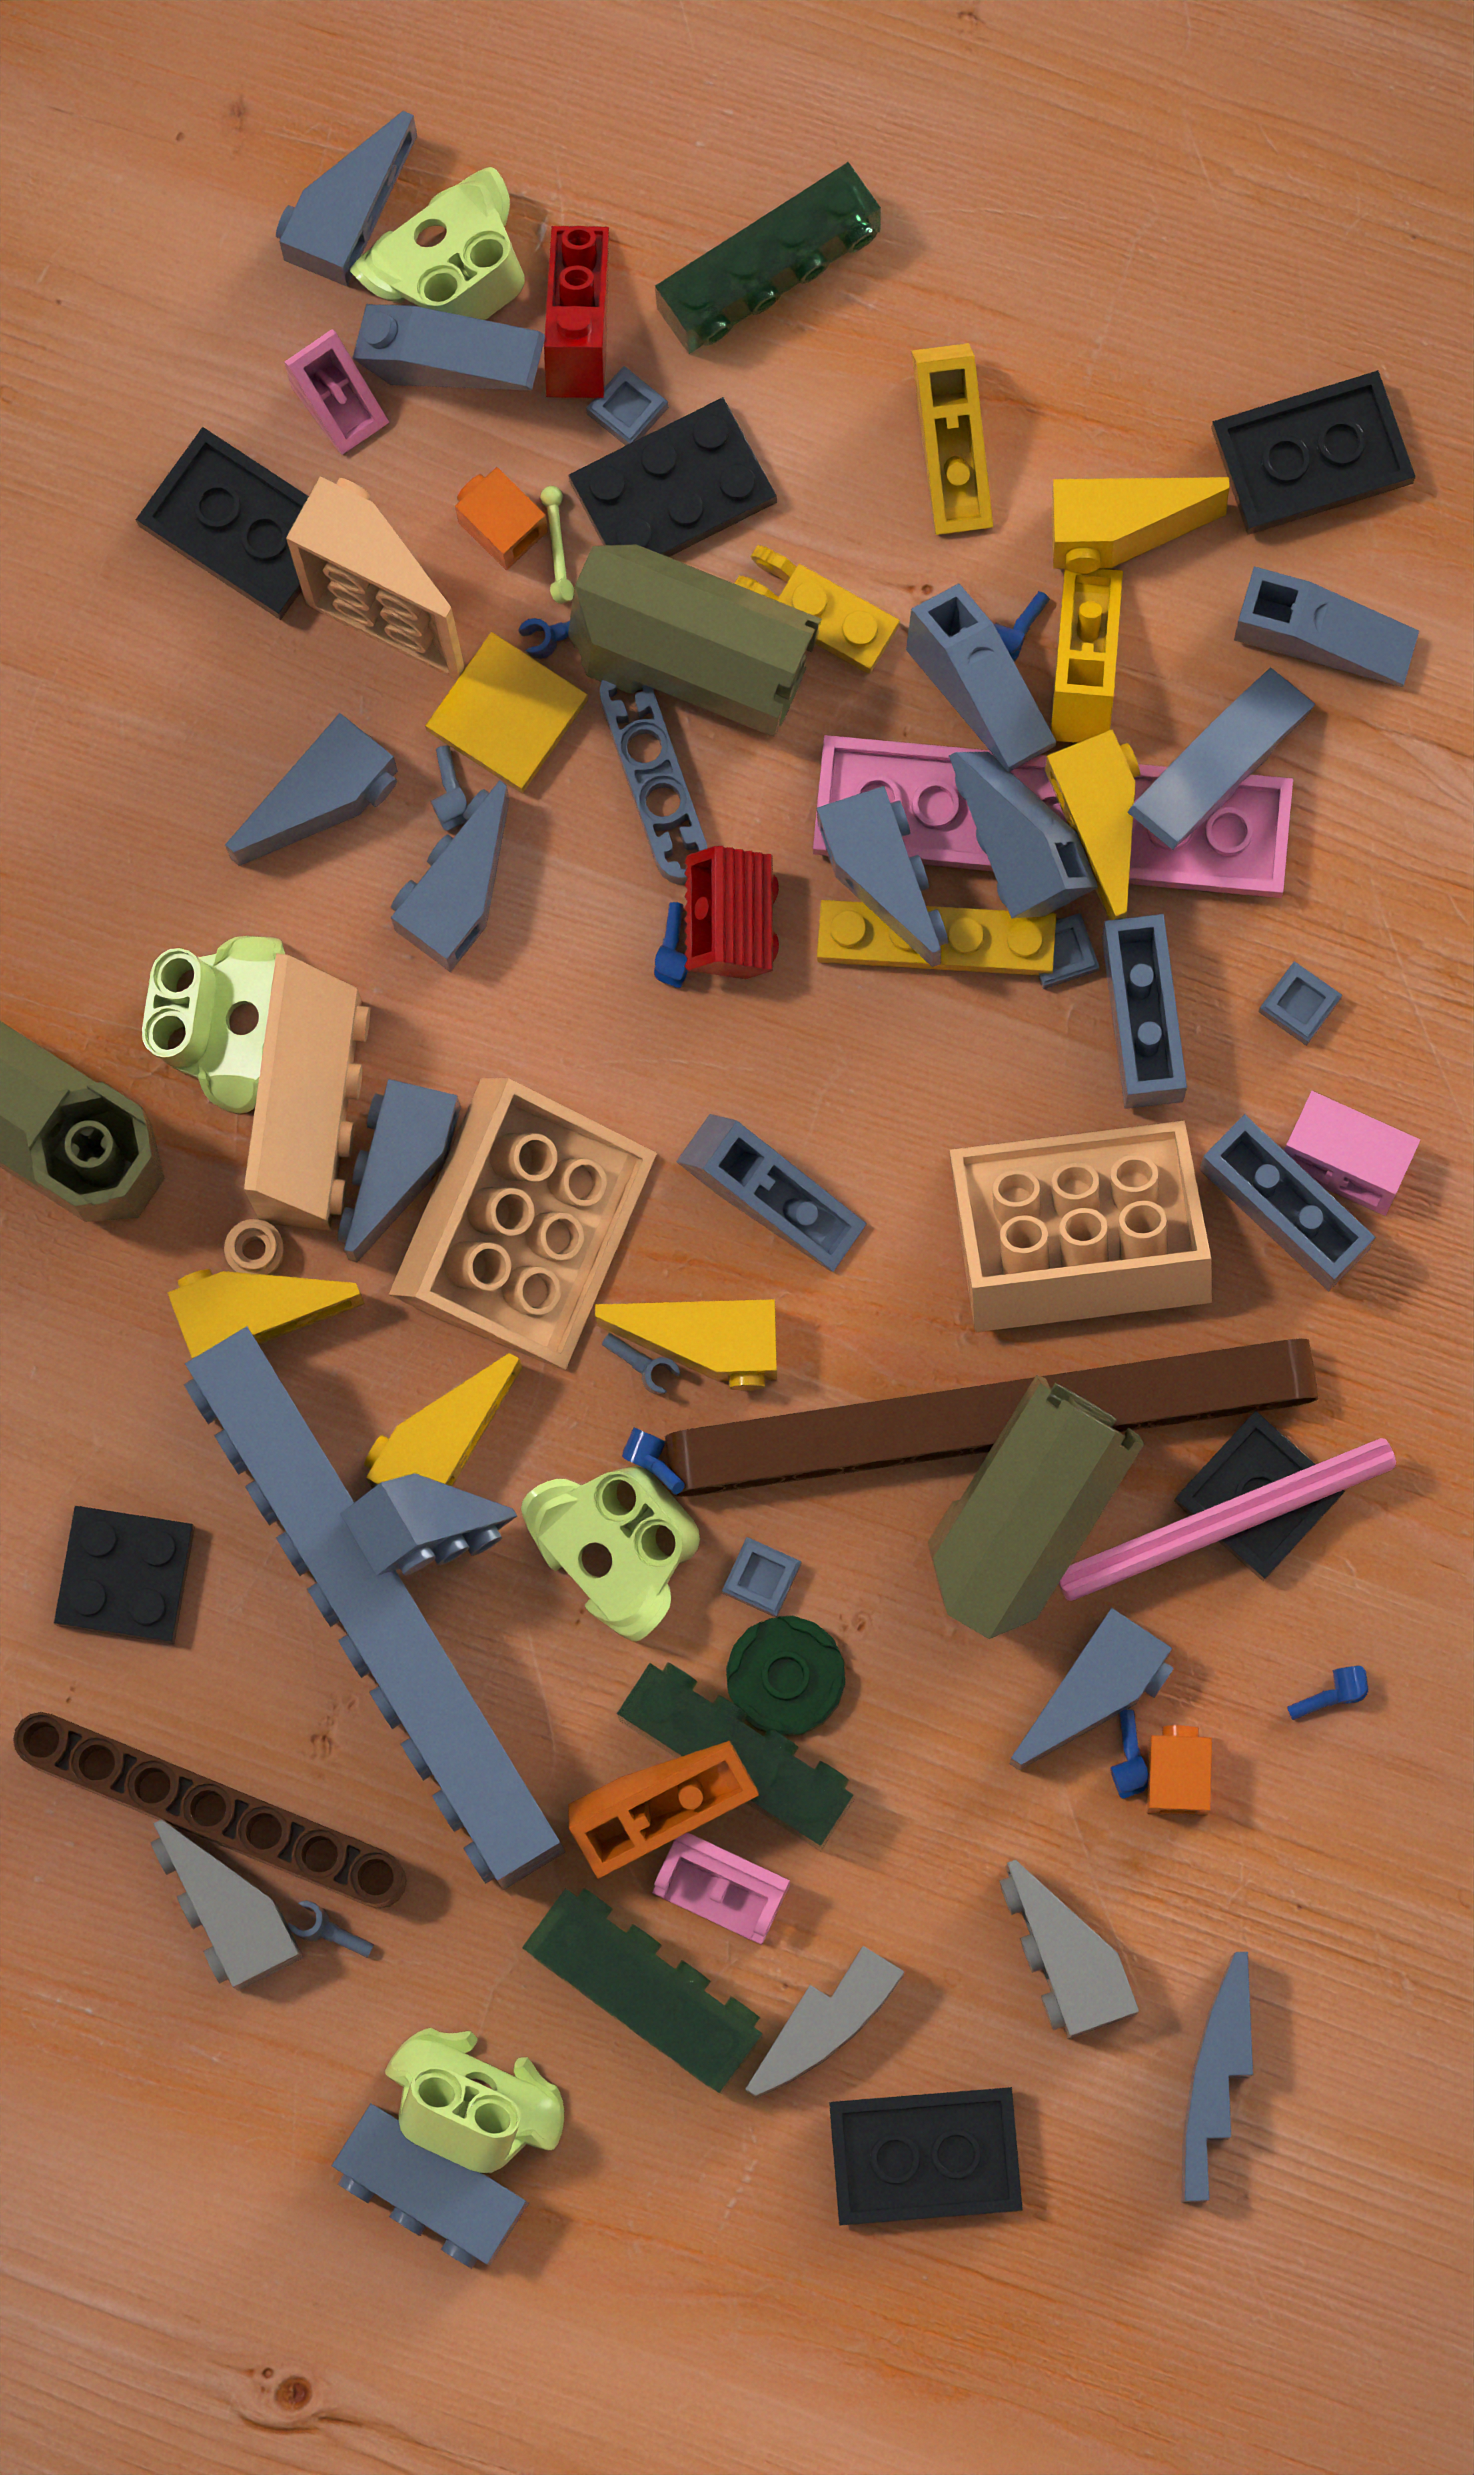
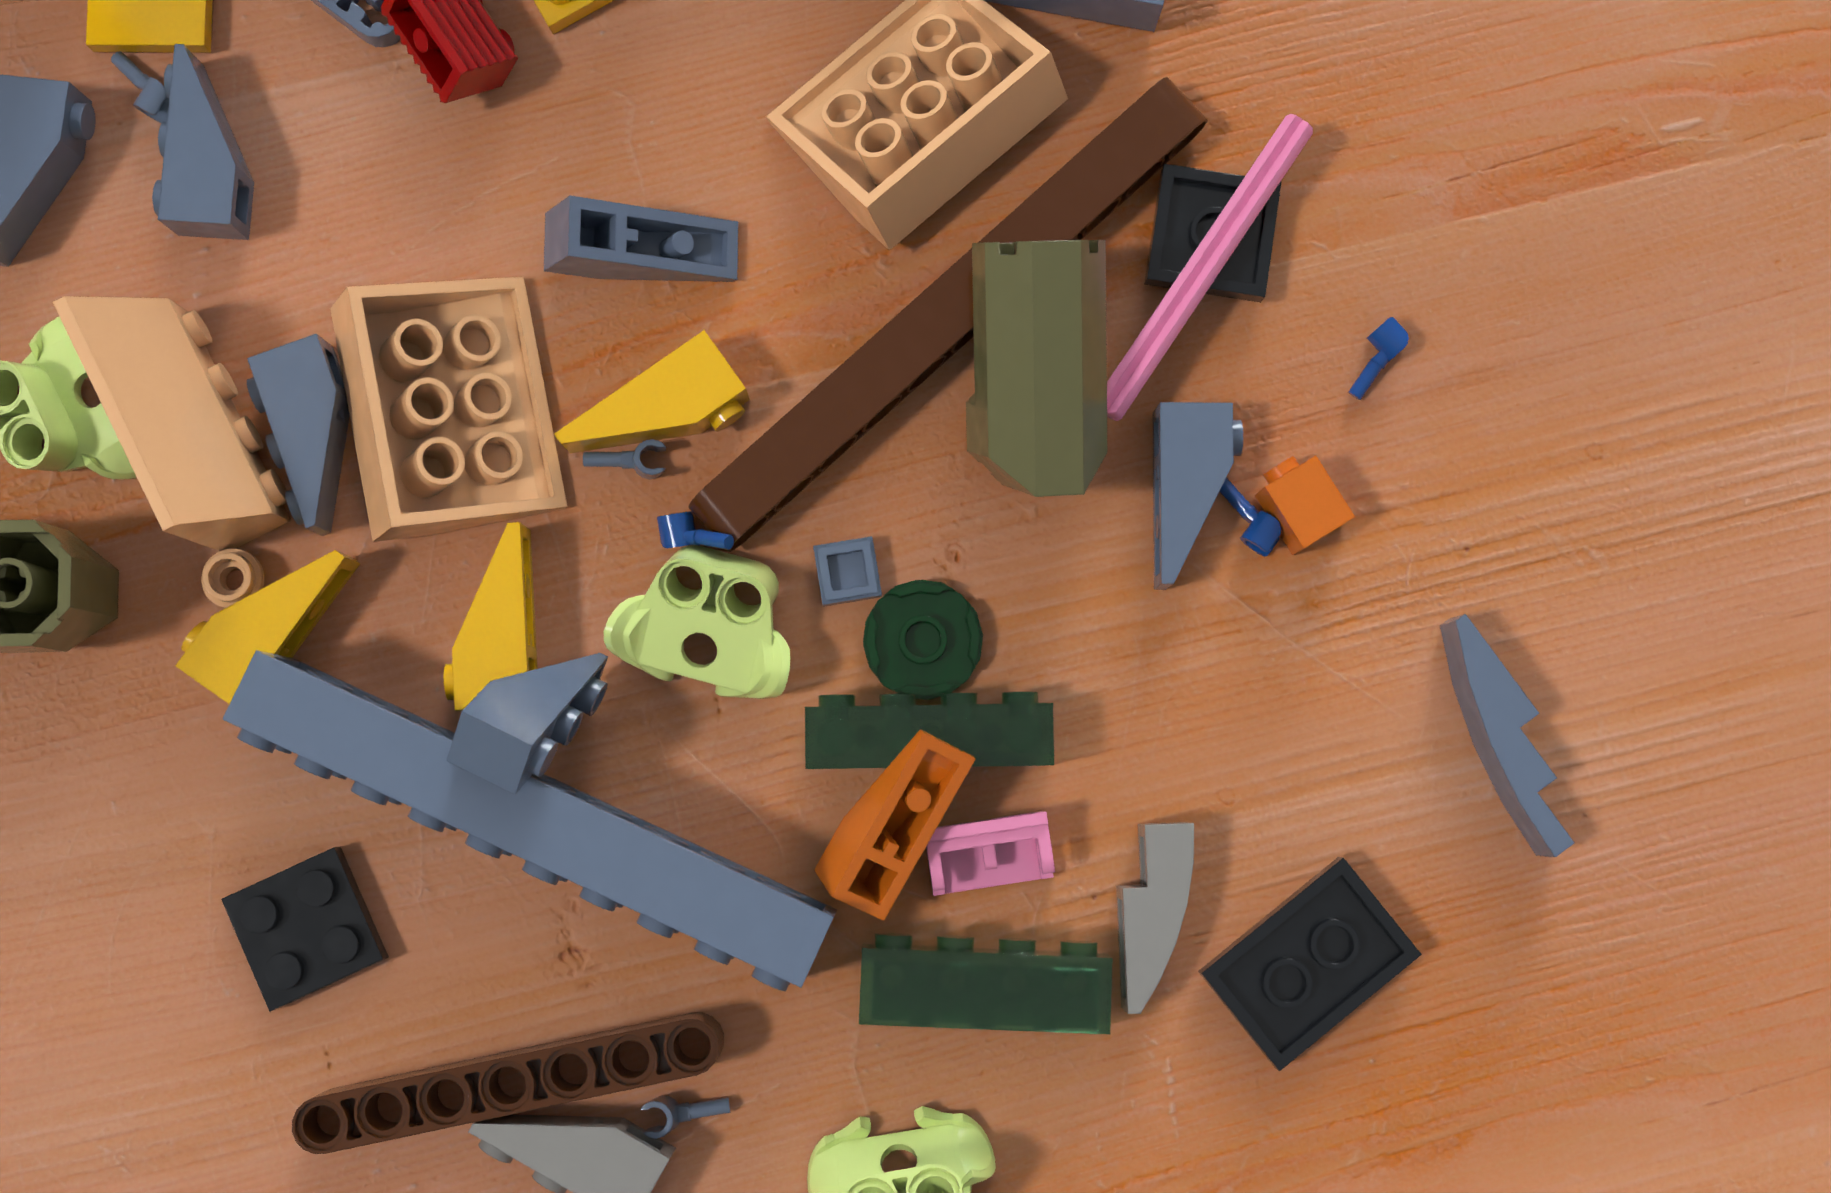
camera: 45 degrees left, 5 degrees up
(668, 961) = (428, 111): blue hand -> none
(1079, 1966) = (1332, 720): light grey slope -> none

